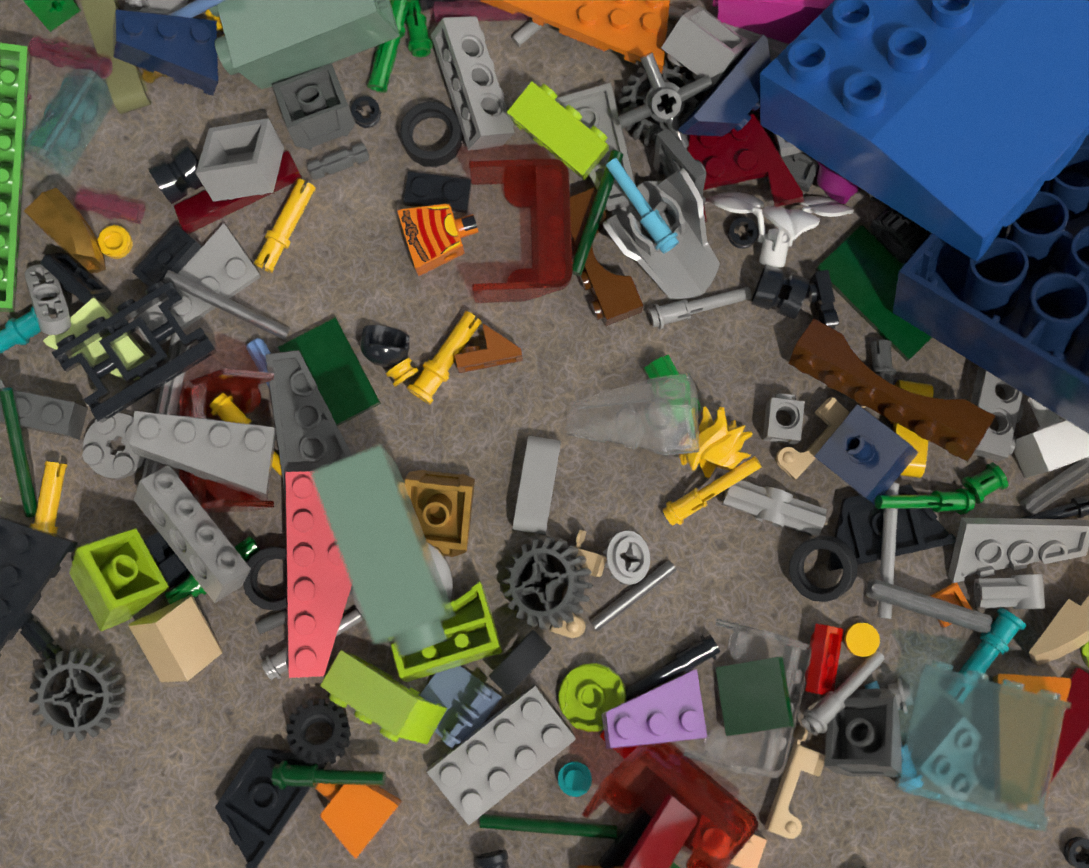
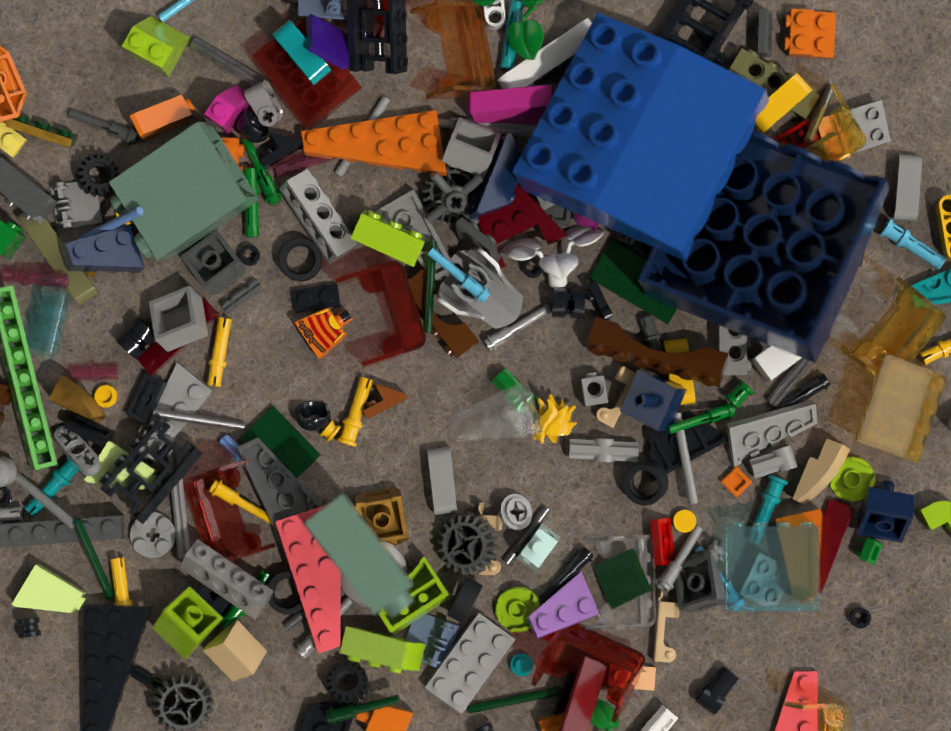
camera: 15 degrees left, 5 degrees up
(209, 449) = (223, 521): light grey wedge -> none
(645, 617) = (538, 547): none -> light aqua torso
(696, 499) = (551, 460): yellow pin -> none
(928, 606) = (701, 487): flat silver axle -> none

